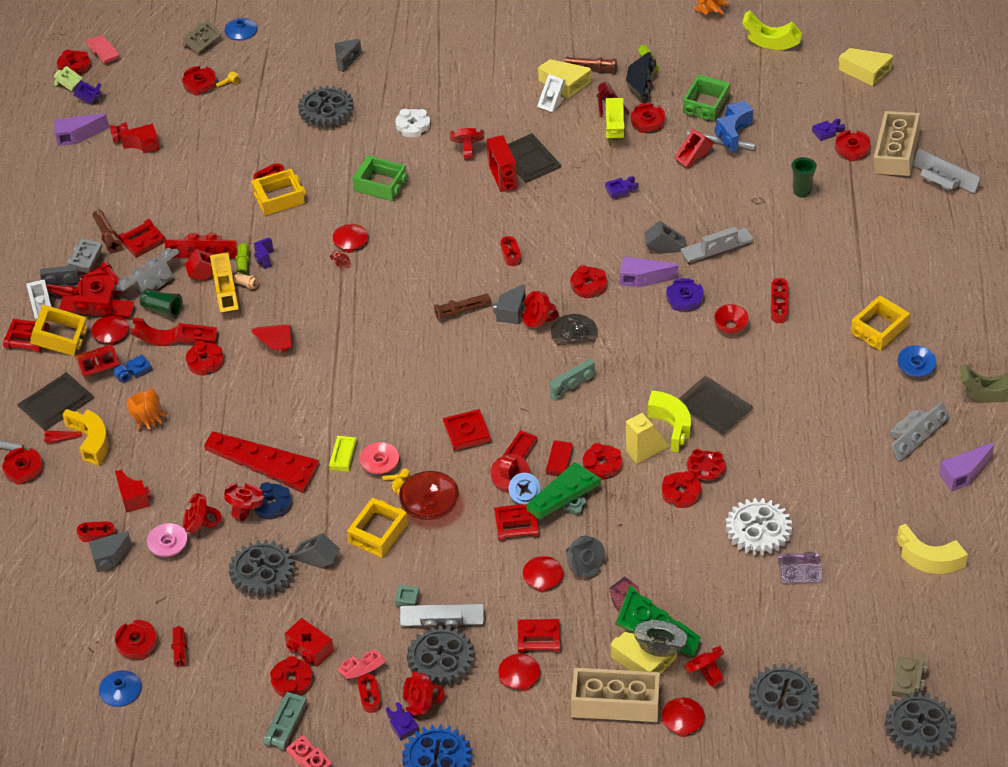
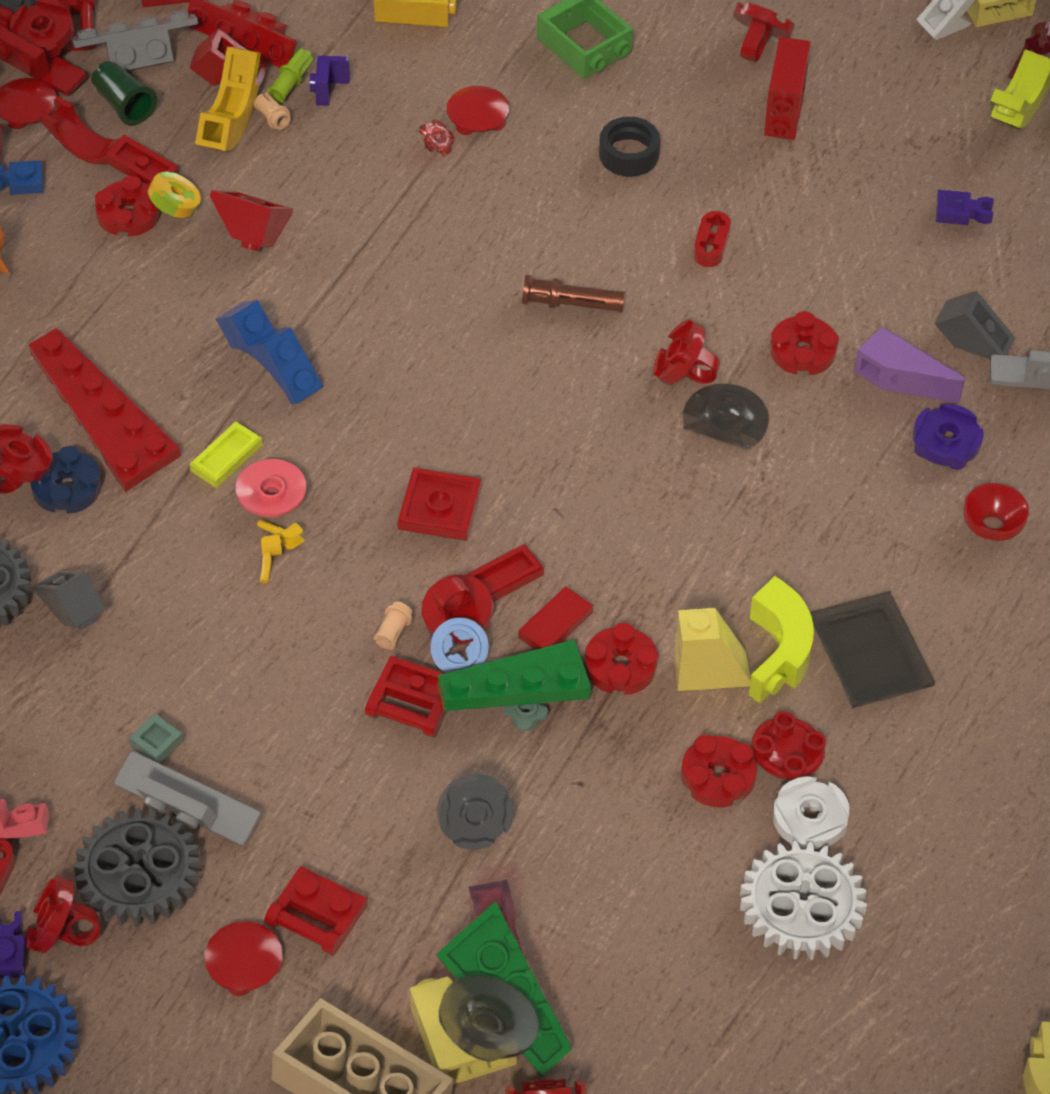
camera: 25 degrees right, 5 degrees up
(226, 341) = (174, 194): none -> piece
(339, 392) = (275, 349): none -> blue arch
(372, 543) = (201, 625): yellow window -> none
(428, 488) = (299, 573): clear red dish -> none
(440, 233) = (629, 163): none -> black tyre
(483, 490) = (397, 617): none -> light nougat pin
(510, 305) = (647, 328): dark grey slope -> none
(532, 158) = (846, 99): clear smoke piece -> none
(542, 573) = (396, 805): red dish -> none
(571, 379) = (662, 496): sand green plate -> none
(732, 497) = (804, 793): none -> white plate
(800, 568) = (826, 1009): clear purple bracket -> none

